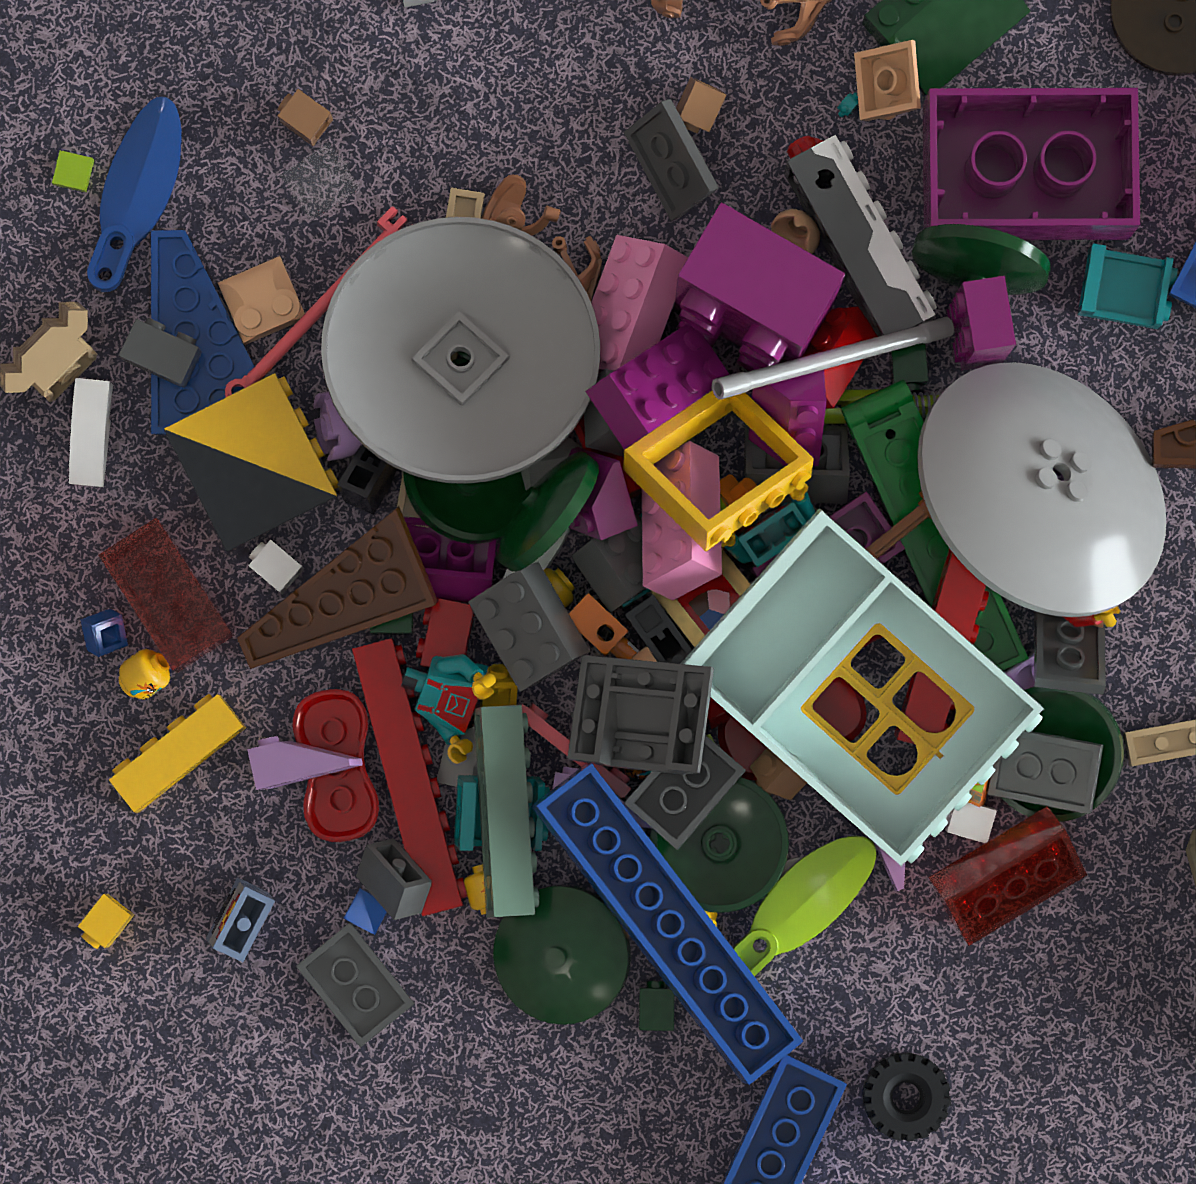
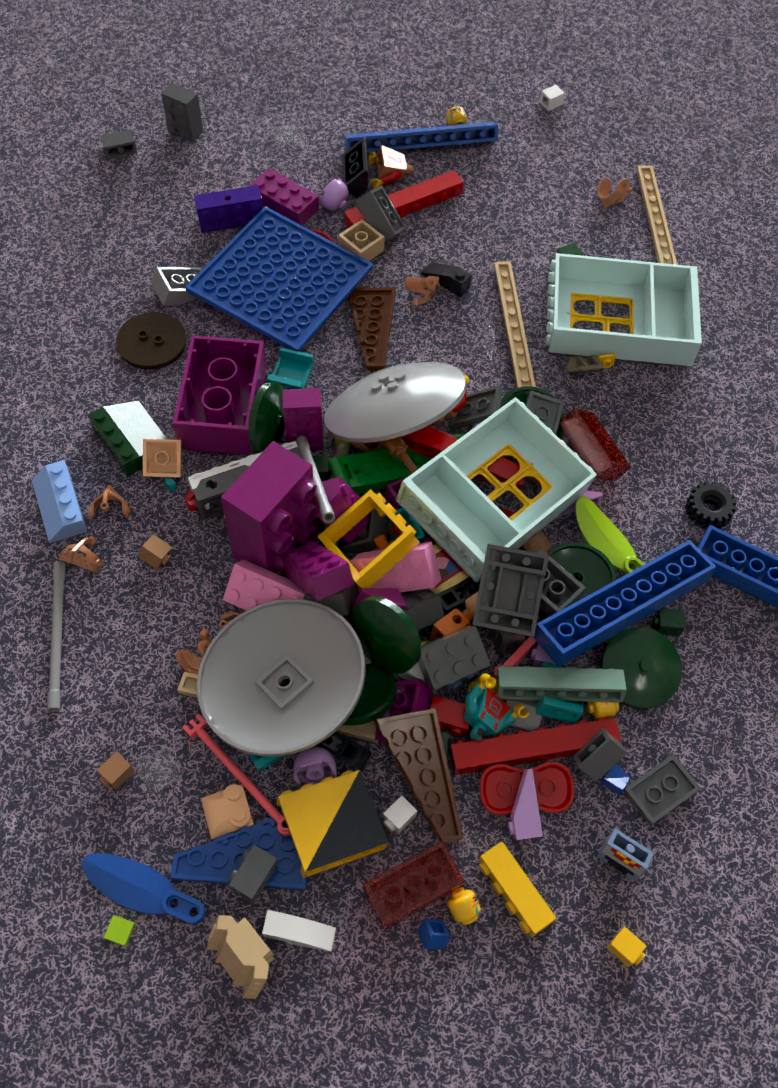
camera: 90 degrees left, 25 degrees down
(671, 159) = (184, 567): dark grey plate -> none

